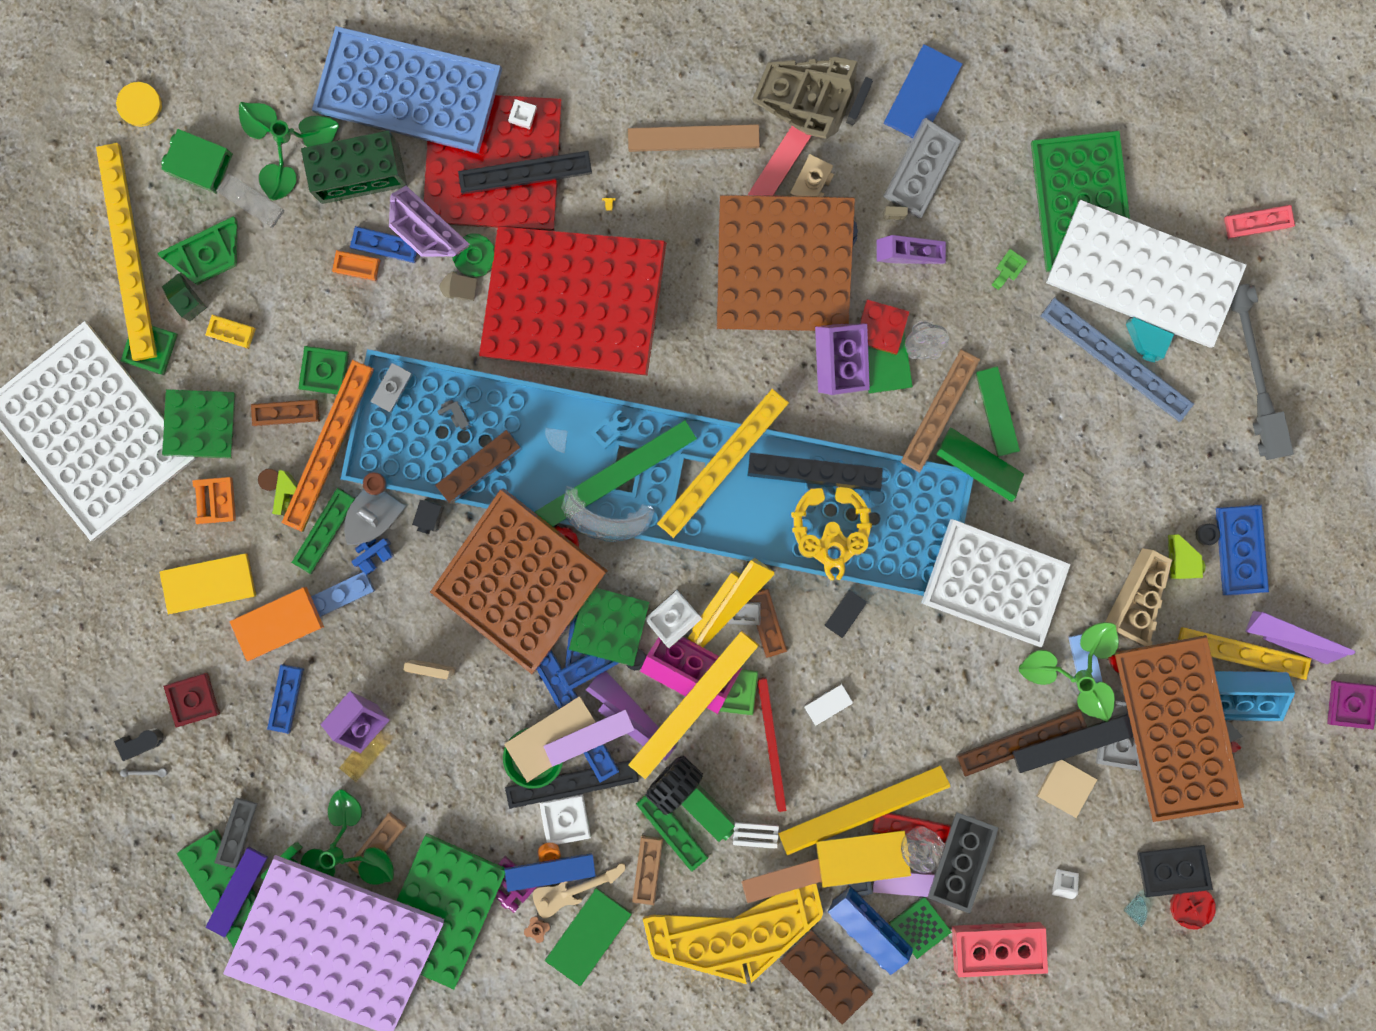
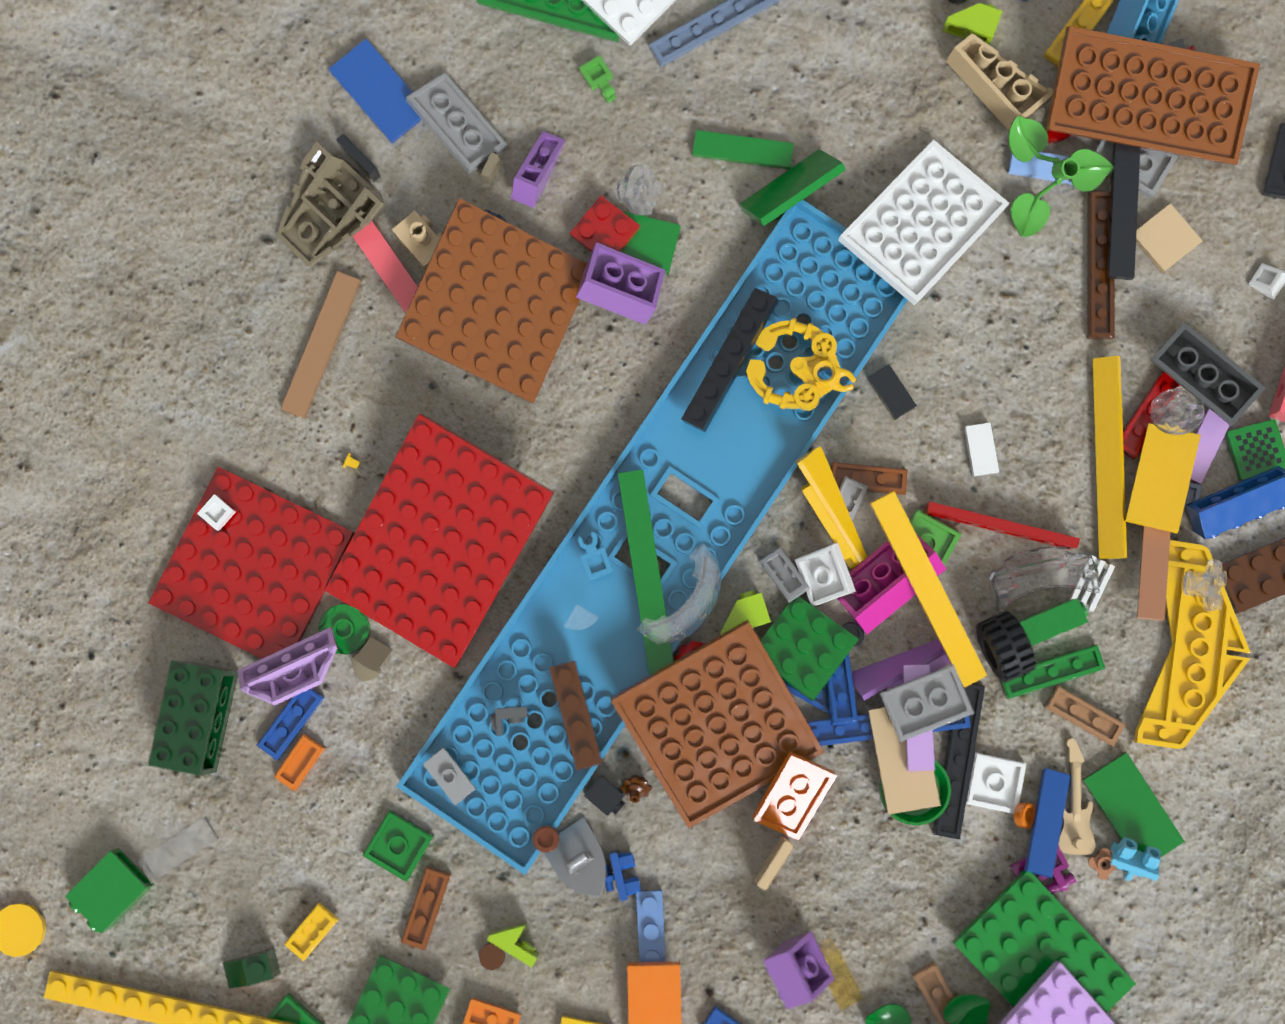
camera: 60 degrees left, 5 degrees down
(206, 252) = (214, 923): green wing -> none
(259, 119) = (95, 801): green plant -> none
(323, 531) = (573, 918): green tile -> none
(327, 445) = (483, 874): orange tile -> none
(407, 89) = (134, 626): medium blue plate -> none
(444, 538) = (636, 787): none -> reddish brown plant
(488, 664) = (794, 795): none -> plate
(525, 172) = (279, 536): black tile -> none
(547, 952) = (1134, 862): none -> medium azure hips
(602, 739) = (926, 703): none -> light grey tile
(619, 569) = (750, 608): none -> lime slope
(661, 586) = (784, 574): none -> light grey plate
(723, 463) = (680, 453): yellow tile -> none
(749, 790) = (1042, 570): none -> clear windscreen
(789, 926) = (1206, 584): none -> clear plate
(940, 410) = (718, 206): medium nougat tile -> none

